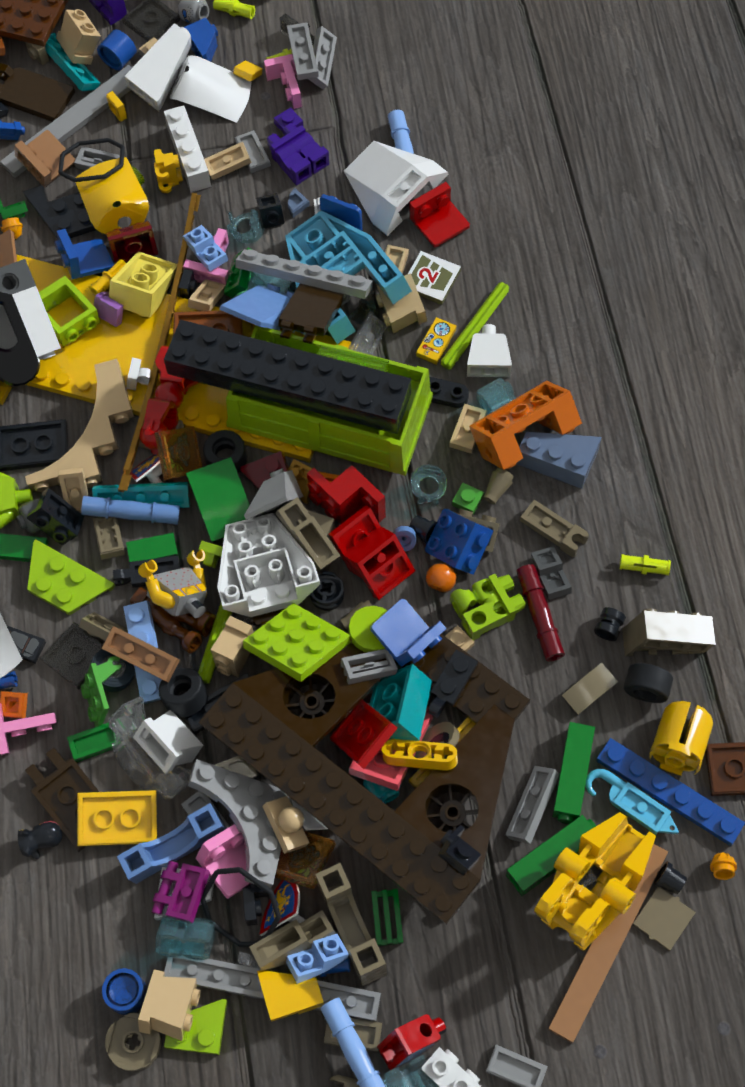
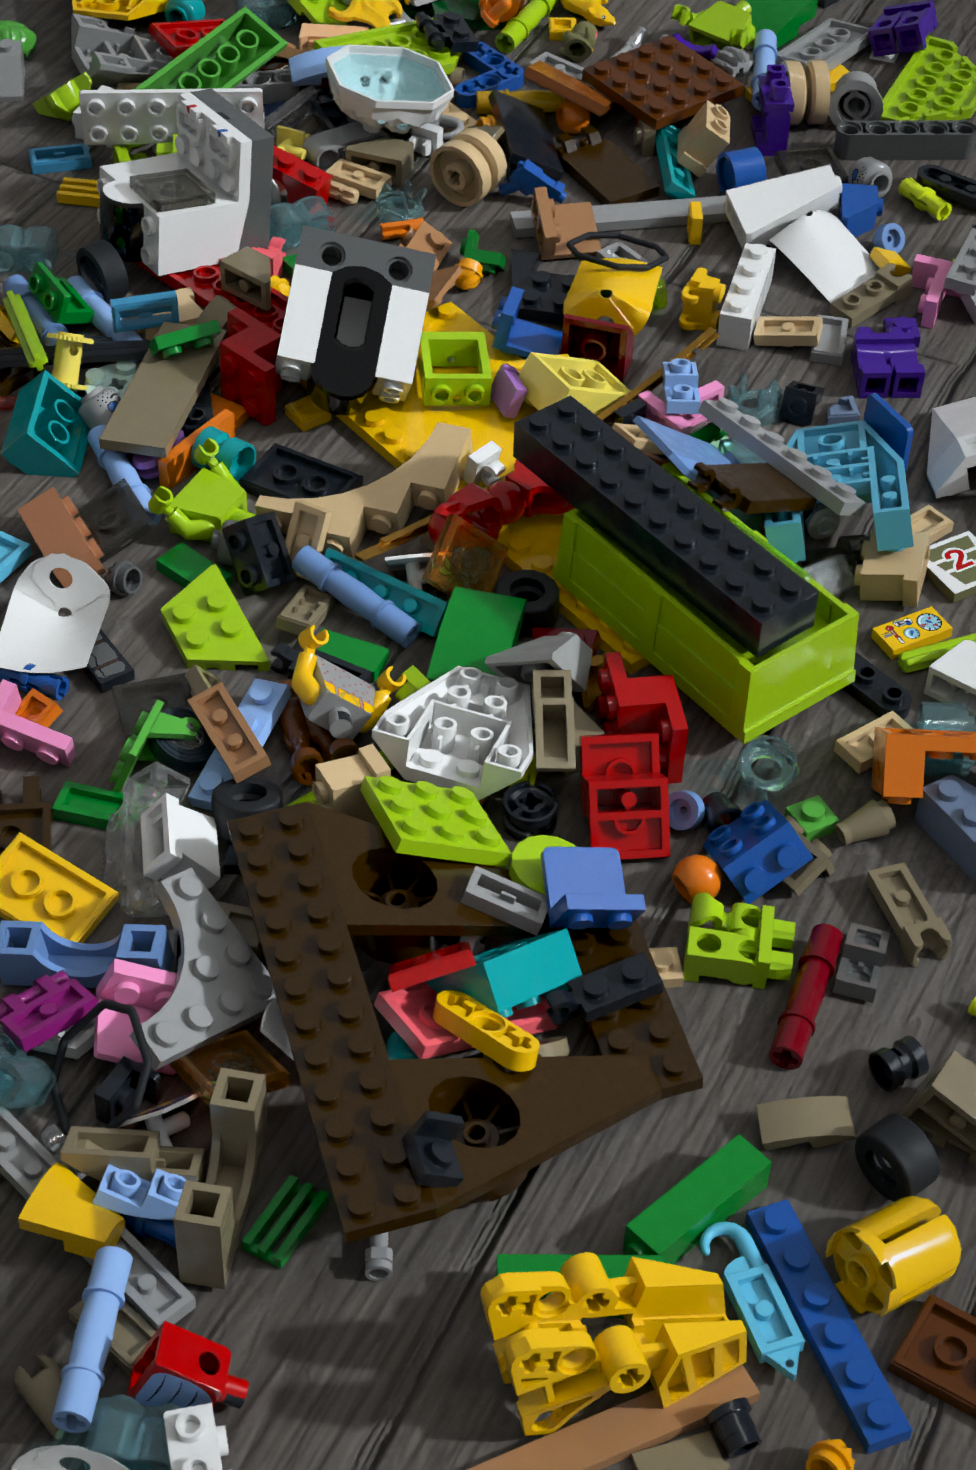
camera: 30 degrees right, 20 degrees down
(236, 53) = (889, 237): none -> medium blue tile
(254, 105) = (872, 296): none -> dark tan plate
(286, 824) = (240, 1010): tan tile -> none
(532, 804) = (602, 1210): light grey plate -> none

